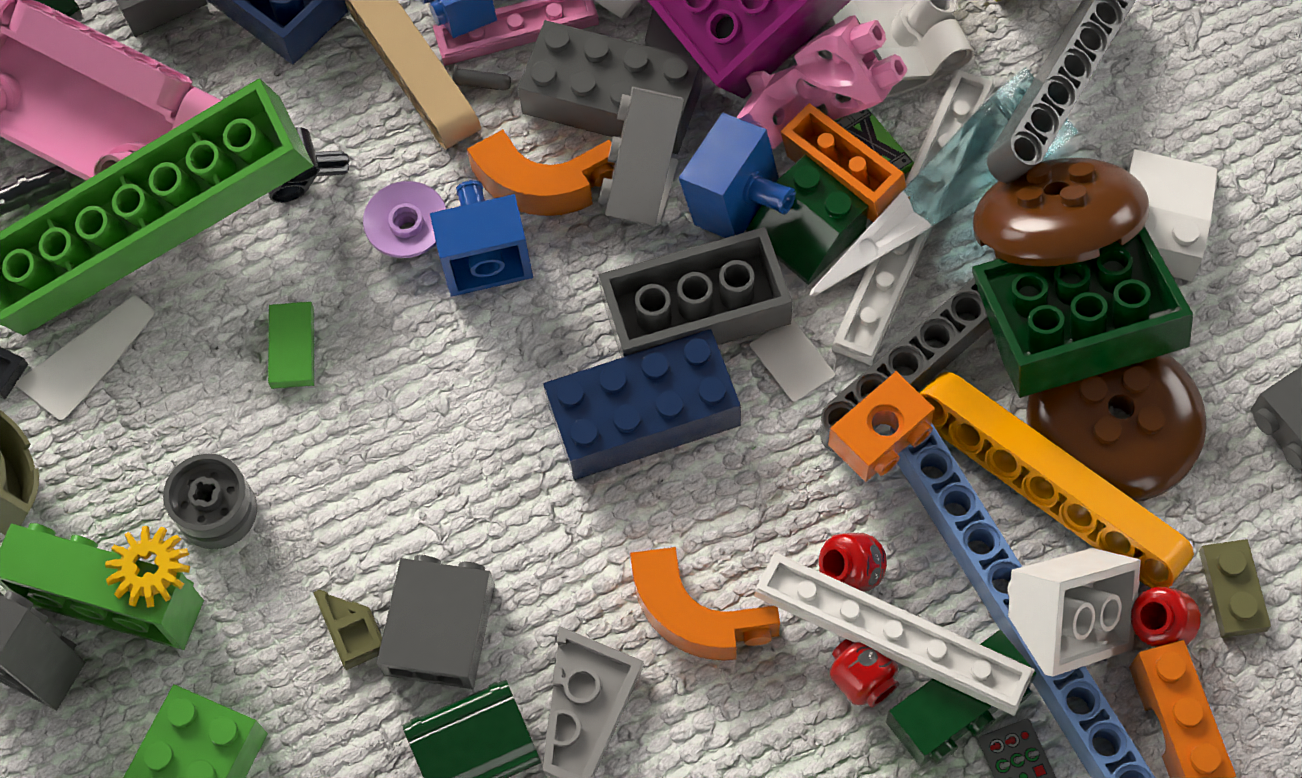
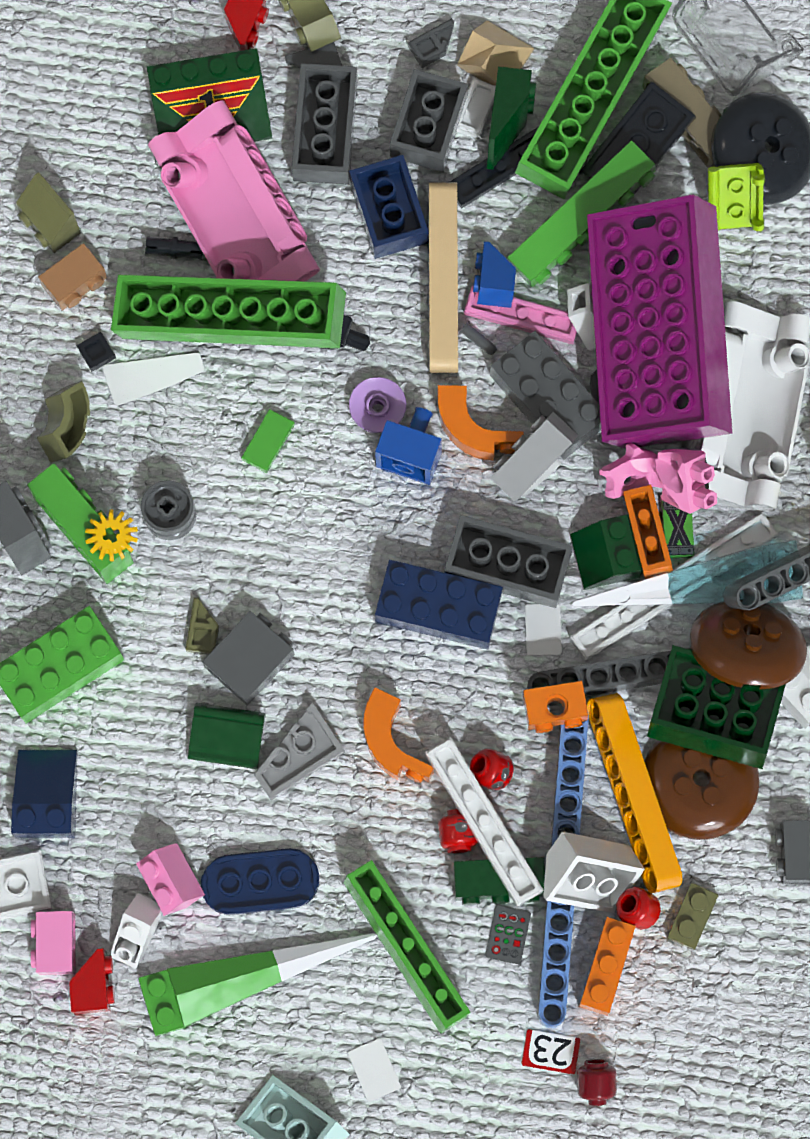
camera: 30 degrees right, 10 degrees up
(733, 178) = (577, 503): blue brick -> none

